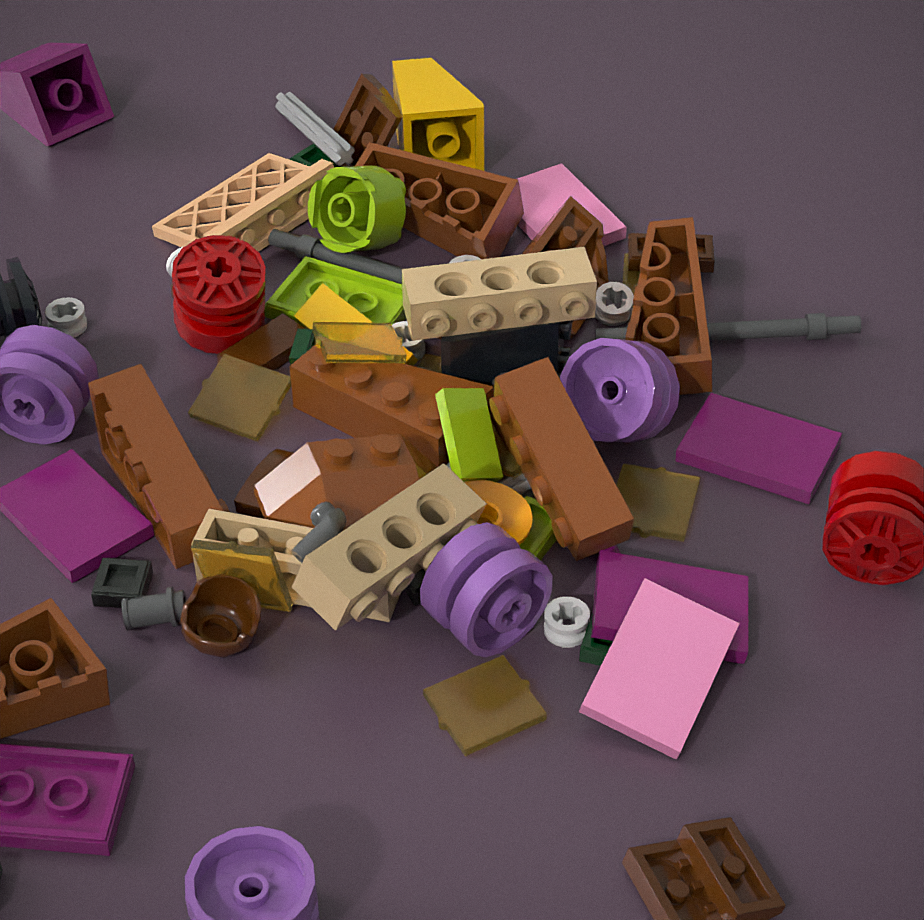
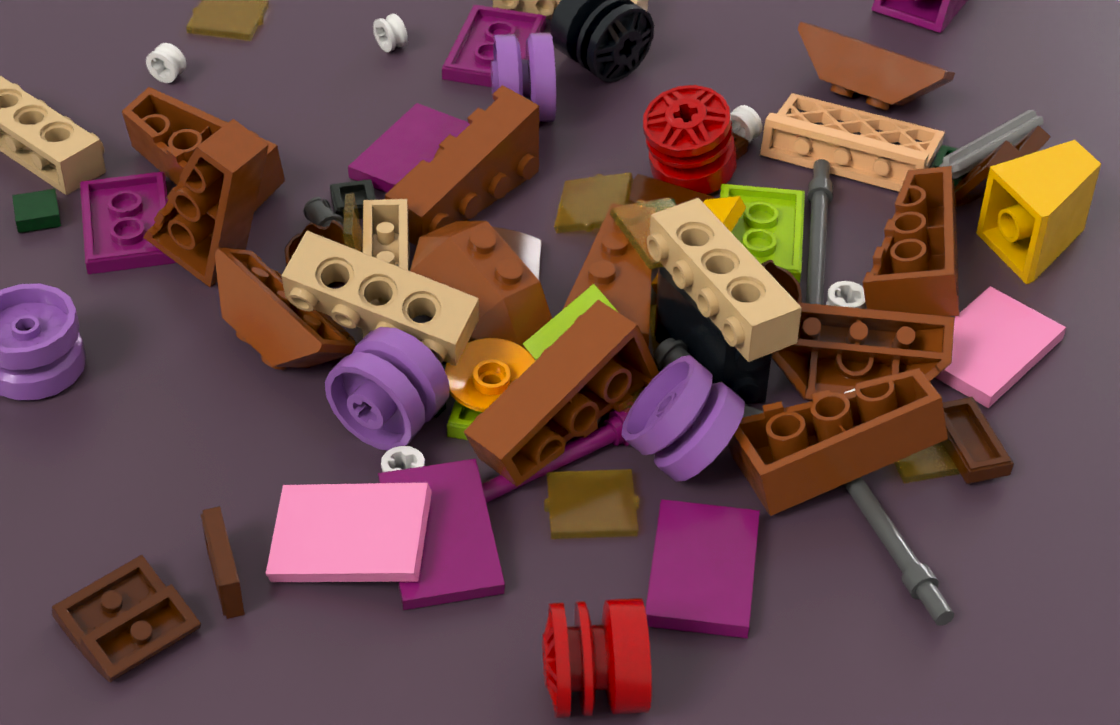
camera: 70 degrees right, 0 degrees up
(67, 316) = (644, 82): white bush -> none
(156, 658) = (212, 201): none -> dark orange wedge
(171, 160) = (869, 69): none -> dark orange wedge
(324, 666) = (262, 316): none -> dark orange wedge
(327, 524) = (406, 257): dark grey arm -> none
(357, 208) = (860, 189): lime brick -> none
(484, 705) = (294, 441): clear yellow piece -> none
(660, 780) = (222, 562): none -> reddish brown tile

